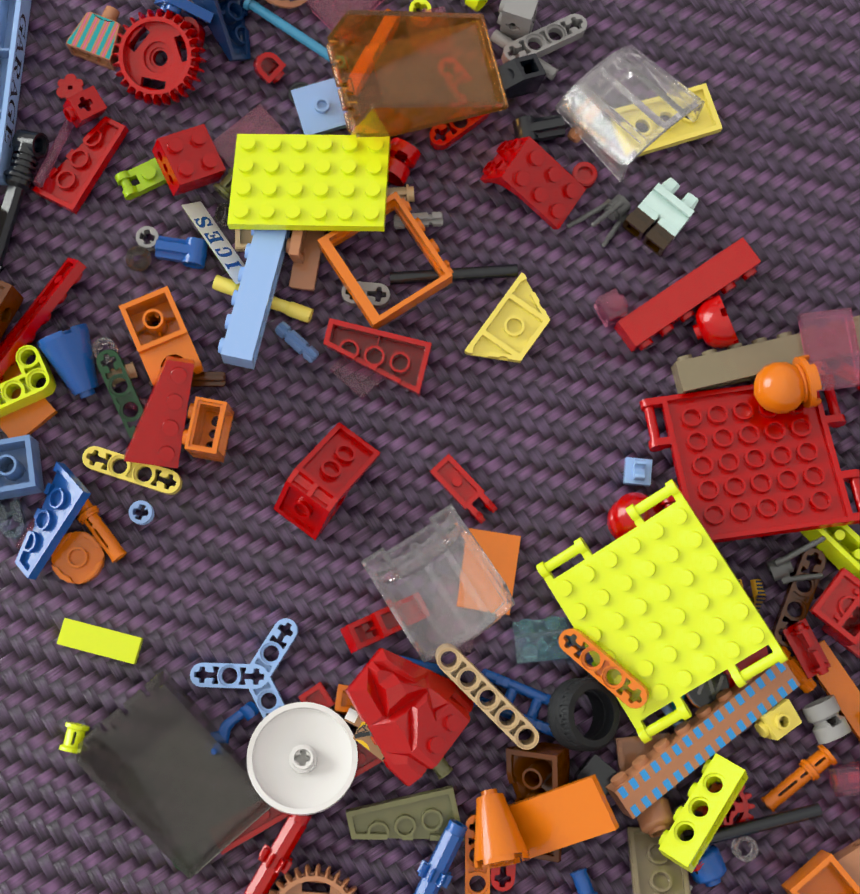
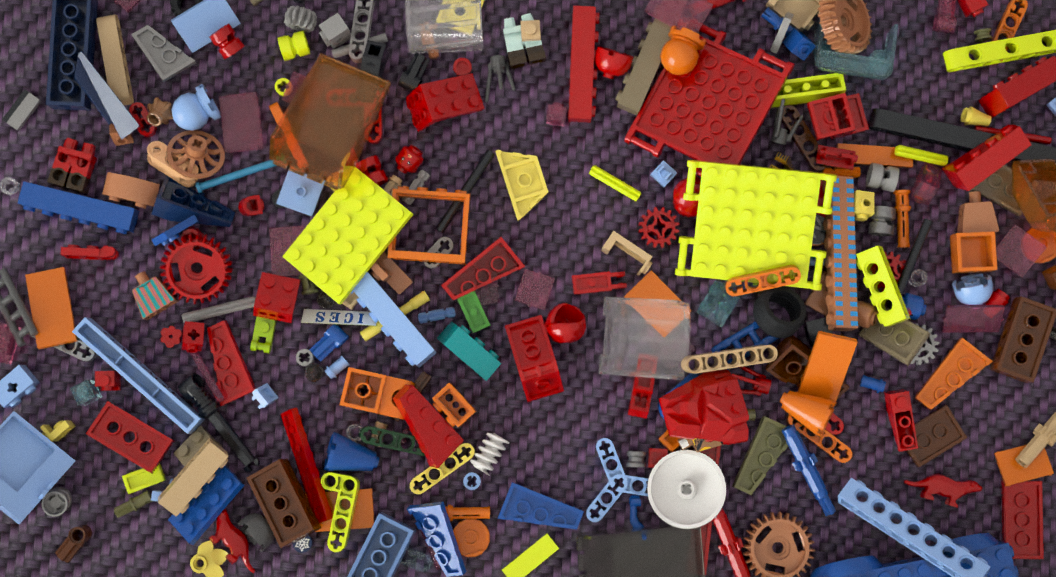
camera: 50 degrees left, 5 degrees up
(75, 226) = (264, 395): none -> light blue tile
(130, 112) = (218, 310): none -> light grey axle
(160, 601) = (533, 507): none -> blue wing
(161, 278) = (336, 367): none -> light blue pin
(185, 508) = (489, 452): none -> white piece
(282, 404) = (469, 350): none -> teal wedge
(296, 676) = (636, 459): none -> flat silver wheel
(329, 377) = (473, 311): none -> bright green plate
(389, 484) = (565, 323): none -> red piece
(403, 426) = (534, 289): none -> clear pink piece
(442, 190) = (409, 159): none -> red head
(485, 755) = (760, 383): none -> red plant
(523, 469) = (630, 249): none -> tan panel
(565, 500) = (666, 226): none -> red gear
(586, 426) = (615, 183): none -> neon yellow axle
(679, 211) = (530, 30): none -> tan plate
(776, 757) = (882, 221): none -> flat silver wheel

